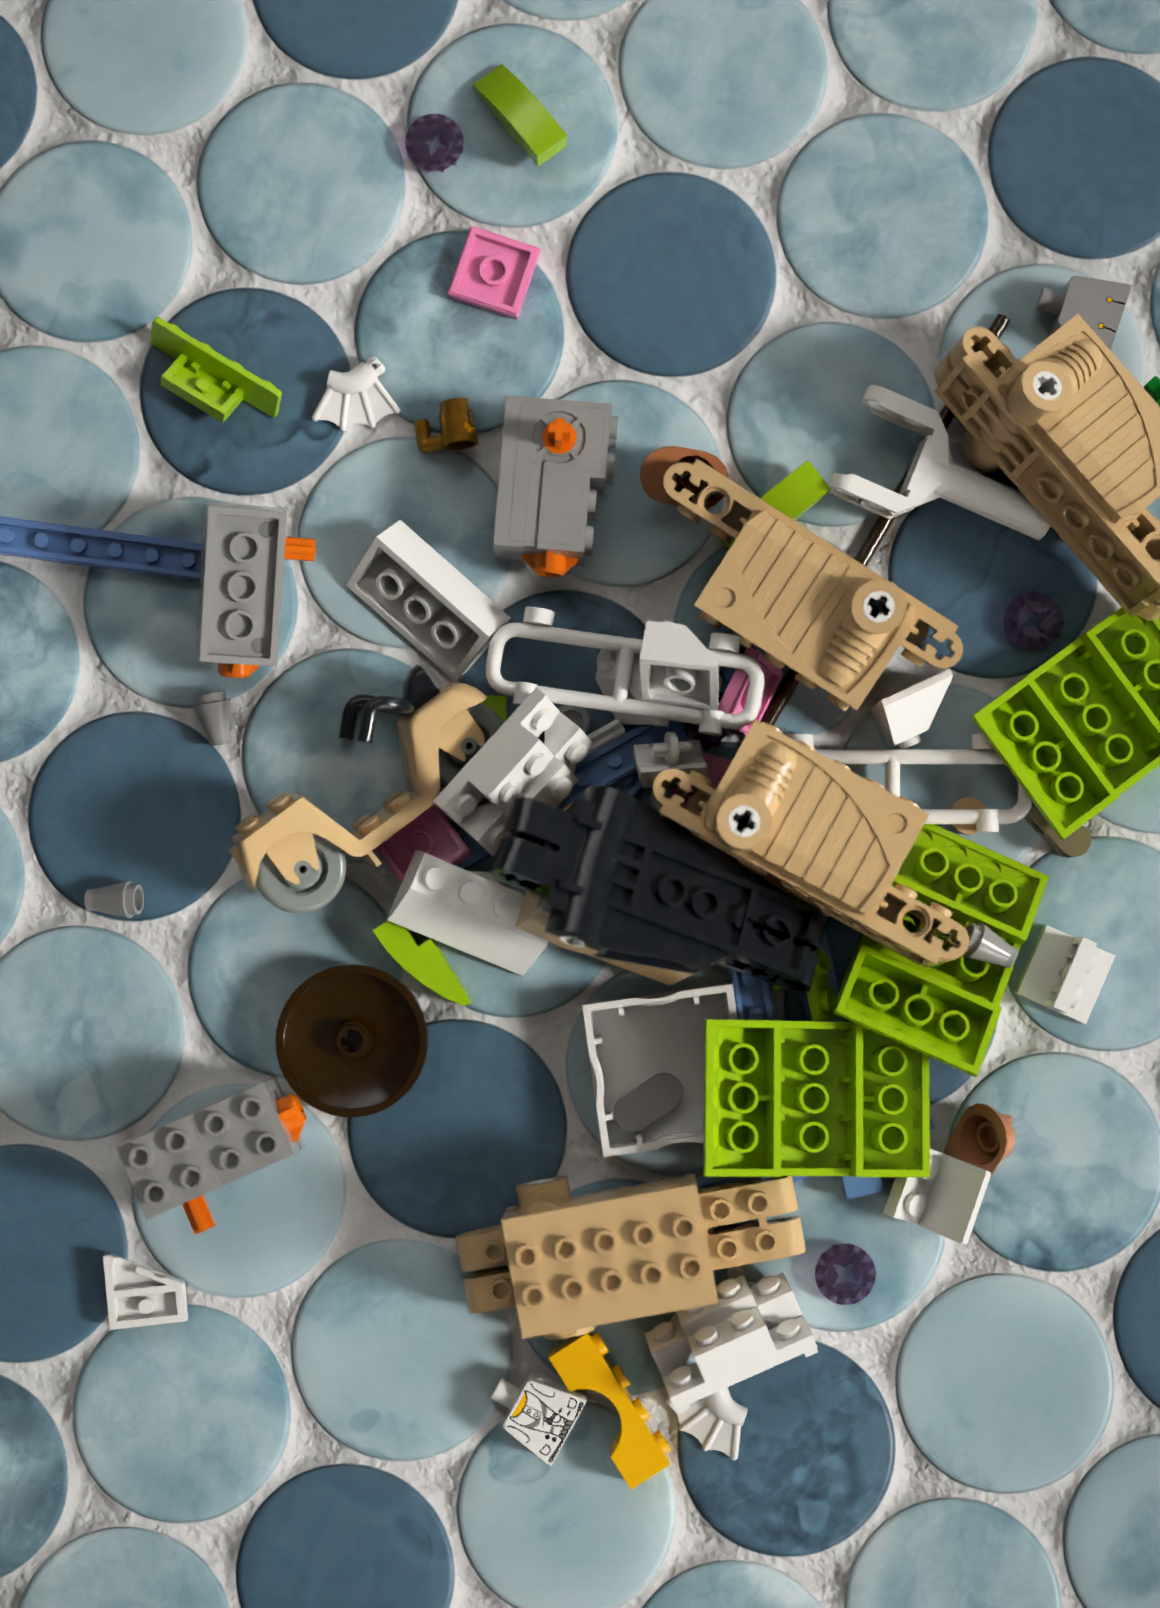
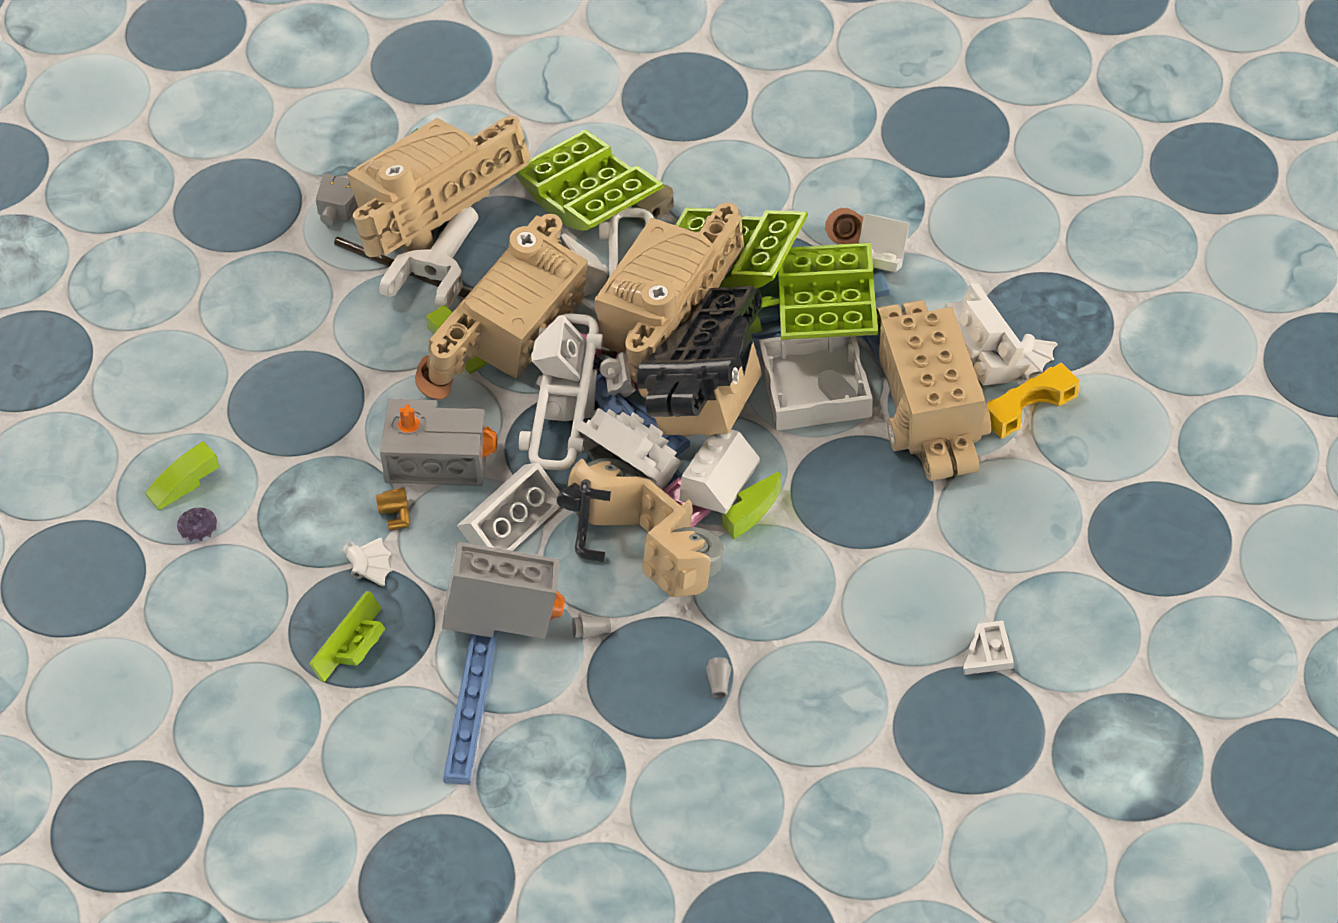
camera: 85 degrees left, 35 degrees down
(212, 1149) = (884, 598): light grey piece -> none
(352, 1040) = (807, 535): dark brown dish -> none
(494, 272) = (288, 491): bright pink tile -> none
(539, 1413) = (1041, 433): torso -> none
(845, 1292) = (934, 287): clear purple gear -> none
(1029, 637) = (517, 219): clear purple gear -> none
(1065, 974) = (748, 196): white bracket -> none

